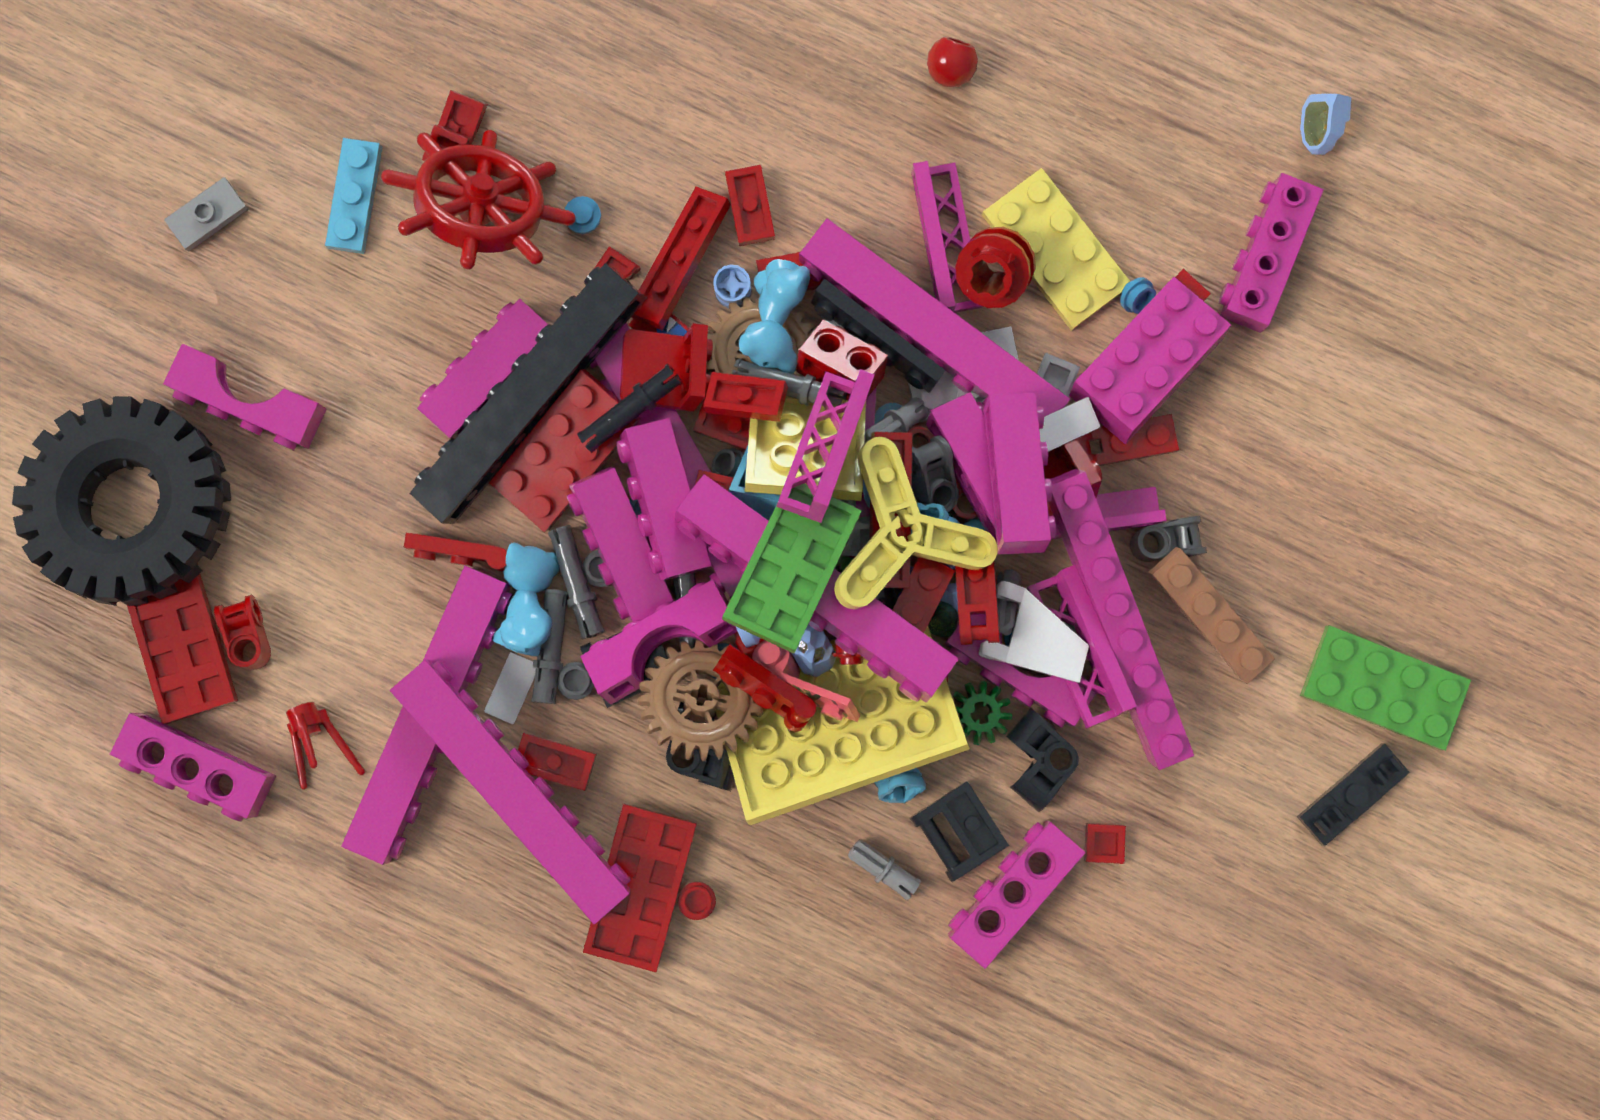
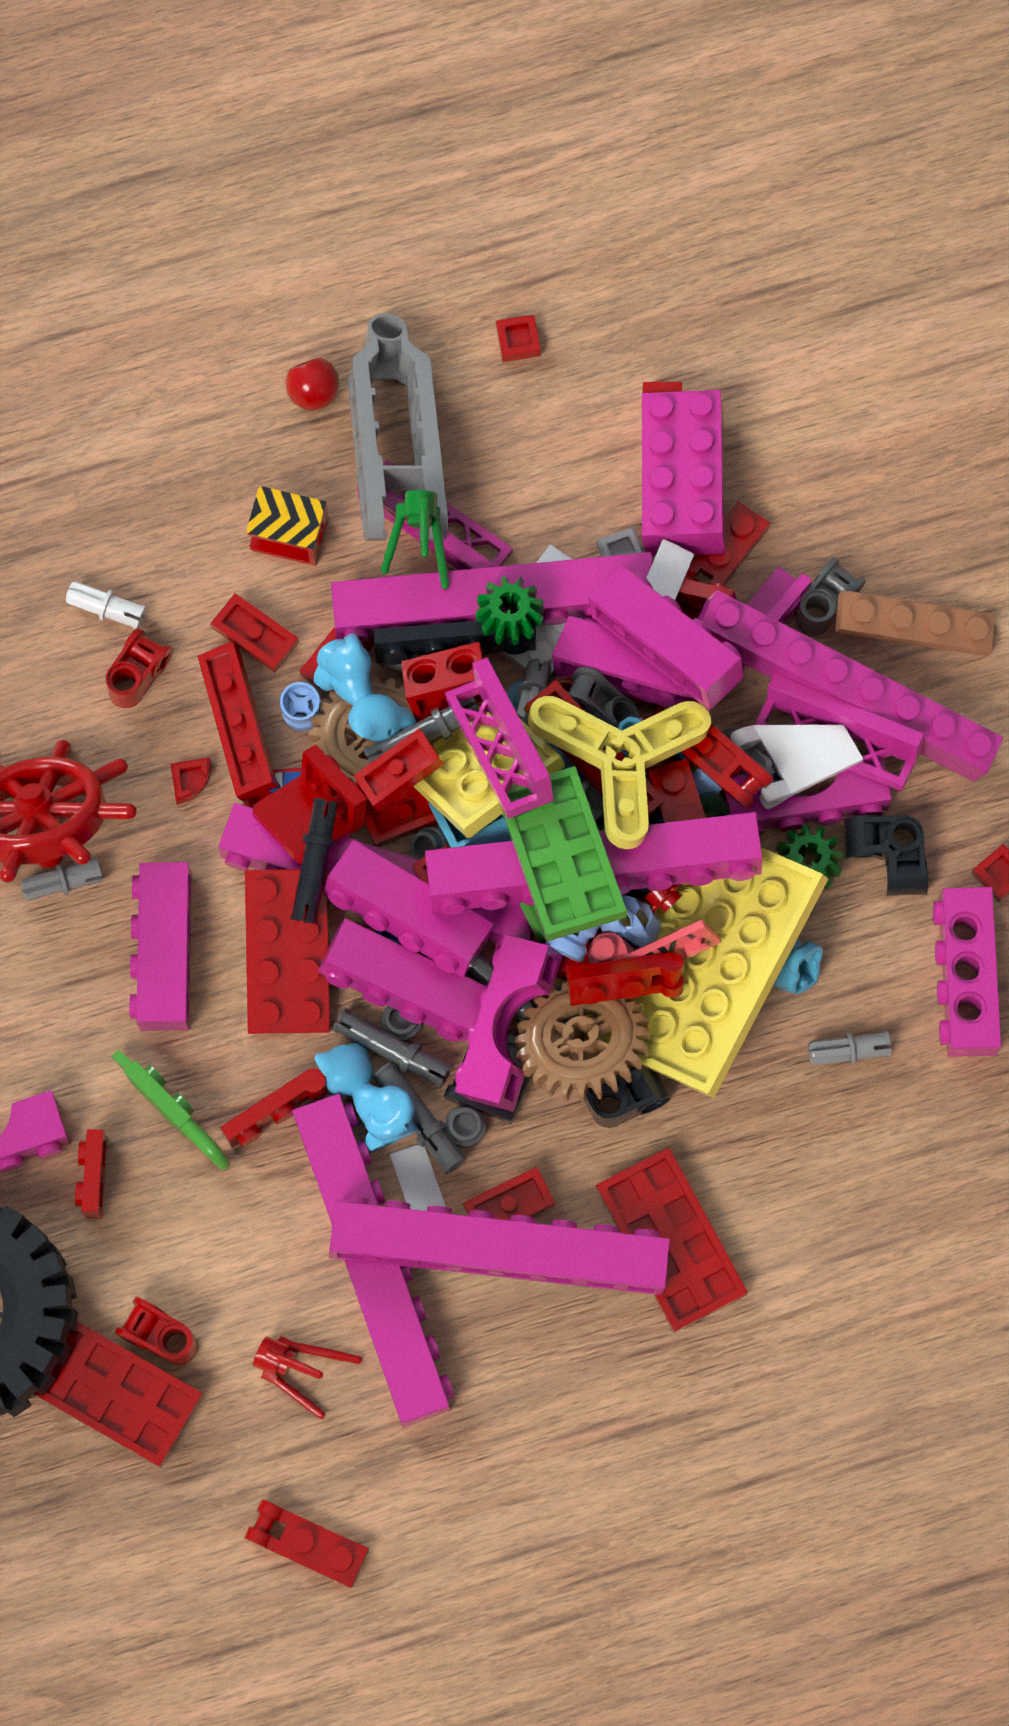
camera: 45 degrees left, 10 degrees down
(135, 752) = (150, 1486): dark pink brick -> none
(214, 864) = (308, 1544): none -> red plate
(308, 476) = (92, 1156): none -> red plate
(389, 488) = (174, 1109): none -> bright green plate
(483, 271) = (61, 879): none -> light grey axle
(527, 394) = (218, 930): black brick -> none
(586, 213) = (129, 751): dark azure plate -> none
(649, 157) = (138, 661): none -> red piece
(667, 93) = (105, 604): none -> white axle
(697, 900) = (726, 1210): red plate -> none
(840, 148) = (287, 525): none -> piece
(930, 224) = (422, 512): none -> green plant
(939, 342) = (509, 624): none -> green gear
(971, 825) = (883, 952): black plate -> none
(994, 246) = (511, 524): red piece -> none
(1022, 90) = (392, 357): none -> light grey piece
(1069, 259) = (528, 456): light yellow plate -> none
(1128, 157) = (518, 338): none -> red tile
(1137, 295) = (626, 434): dark azure plate -> none
(1270, 253) = (697, 313): dark pink brick -> none
(1324, 121) = (644, 180): light blue rock -> none

